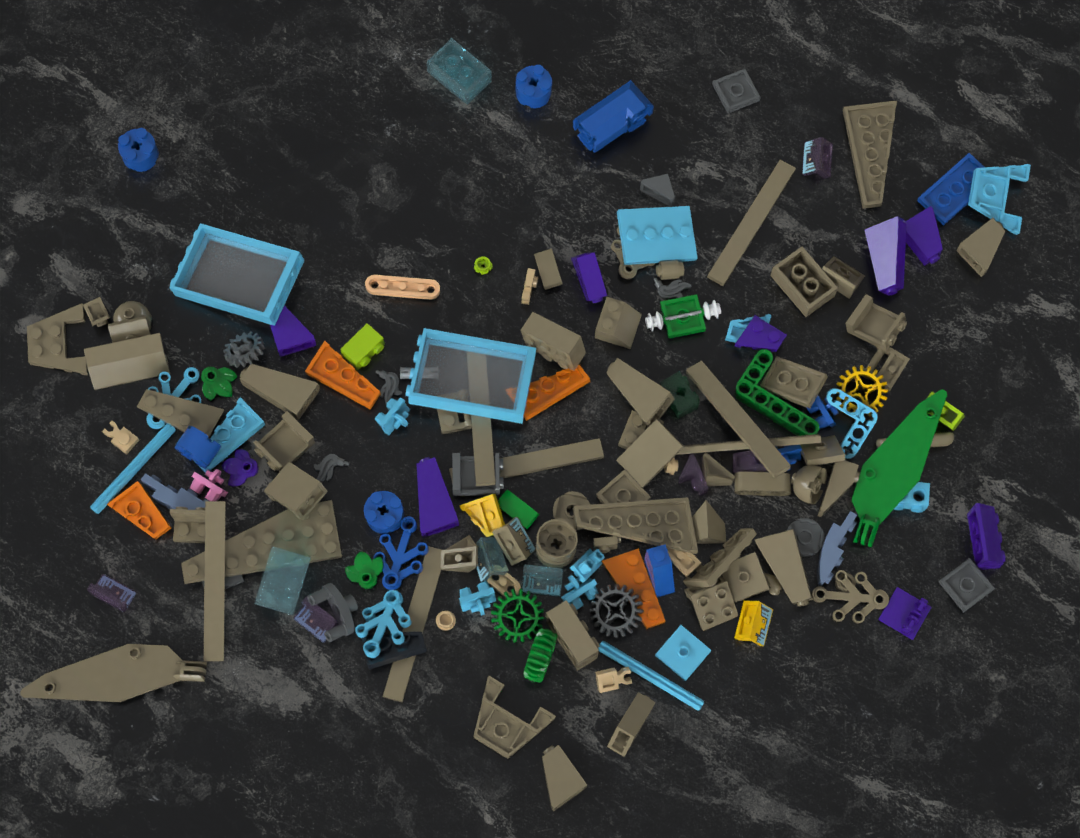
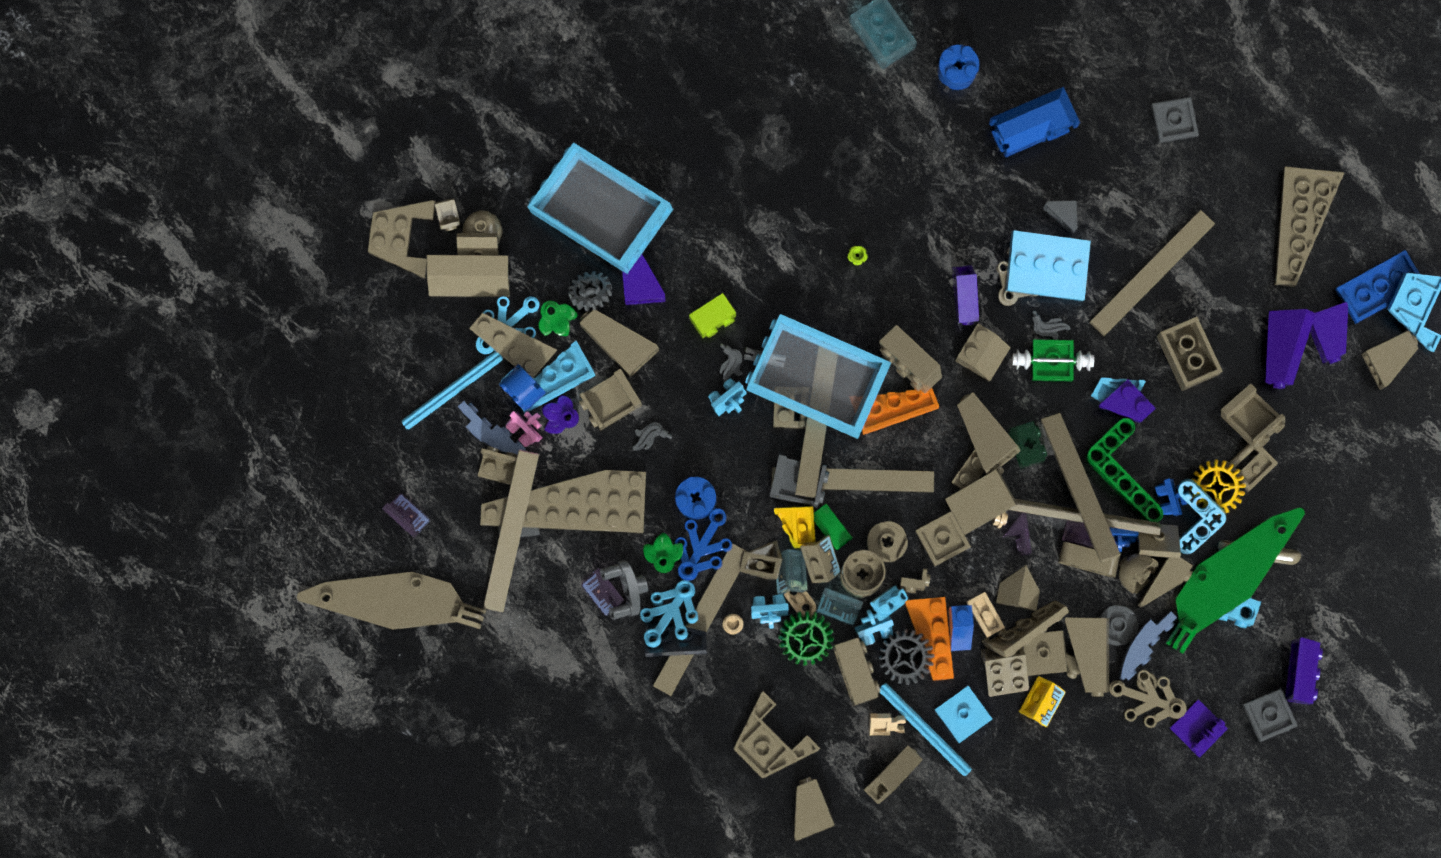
camera: 15 degrees right, 10 degrees up
(121, 438) = (447, 355): tan plate -> none
(138, 149) = (520, 33): blue brick -> none
(141, 510) = (450, 434): orange wing -> none
(282, 580) = (578, 546): clear light blue brick -> none
(296, 490) = (611, 455): dark tan panel -> none
(341, 376) = (682, 340): orange wing -> none
(402, 287) = (768, 259): light nougat plate -> none
(435, 504) = (749, 497): dark purple slope -> none
(530, 282) = (903, 286): tan plate -> none
(540, 655) = (819, 684): green gear -> none
(548, 269) = (924, 275): dark tan slope -> none
(643, 521) = (967, 574): dark tan wing -> none
(670, 269) = (1052, 306): dark tan brick -> none
(715, 473) = (1042, 537): dark tan slope -> none
(793, 382) = (1149, 460): dark tan tile -> none
(817, 157) = (1241, 217): clear purple panel -> none
(843, 276) = (1232, 355): dark tan slope -> none
(950, 415) = (1303, 534): lime brick -> none

